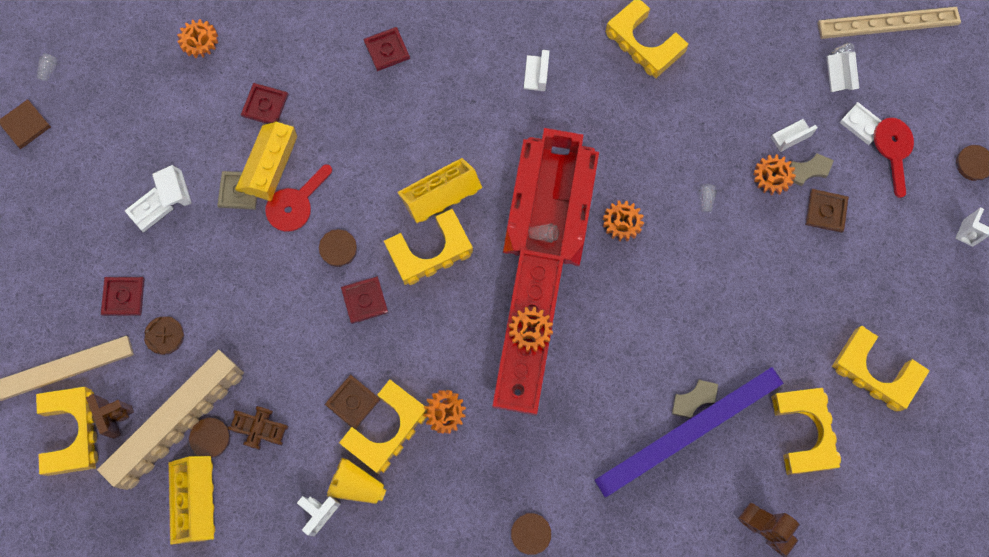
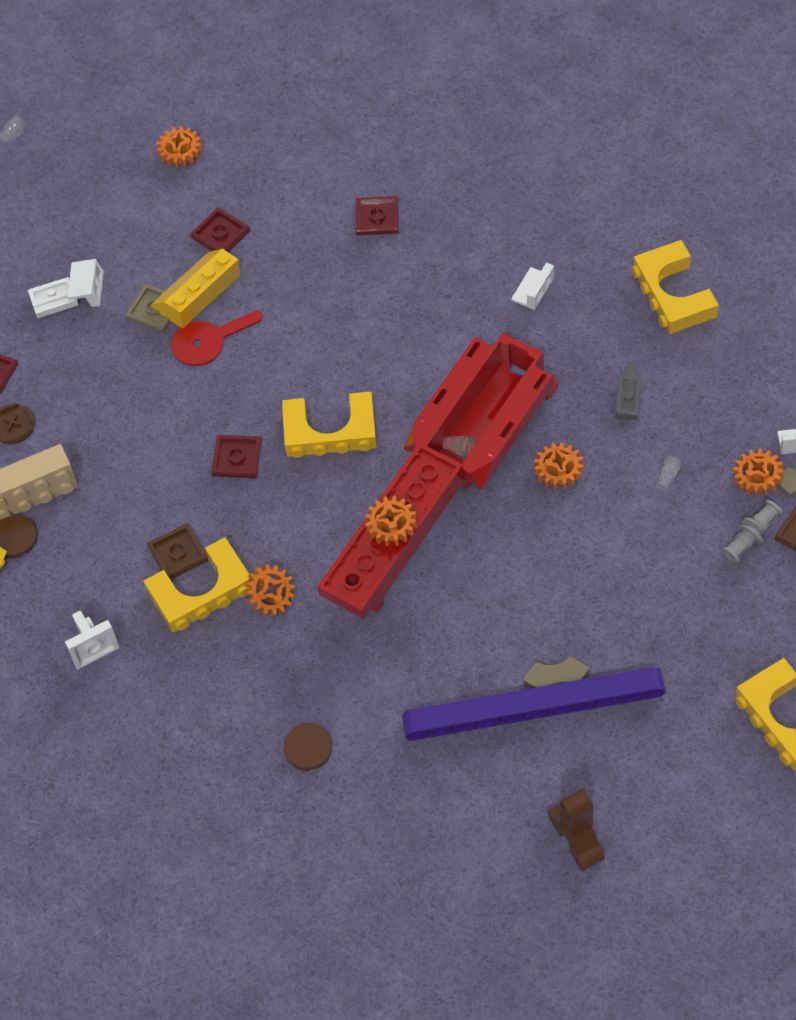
camera: 30 degrees right, 15 degrees down
(258, 427) = (67, 542): reddish brown axle -> none
(338, 248) = (232, 396): reddish brown tile -> none
(355, 484) = (141, 627): yellow cone -> none
(440, 190) = (368, 372): yellow slope -> none
(649, 139) = (628, 393): none -> dark grey hinge
(790, 226) = (751, 531): none -> light grey piece
(814, 405) = (673, 780): yellow arch -> none

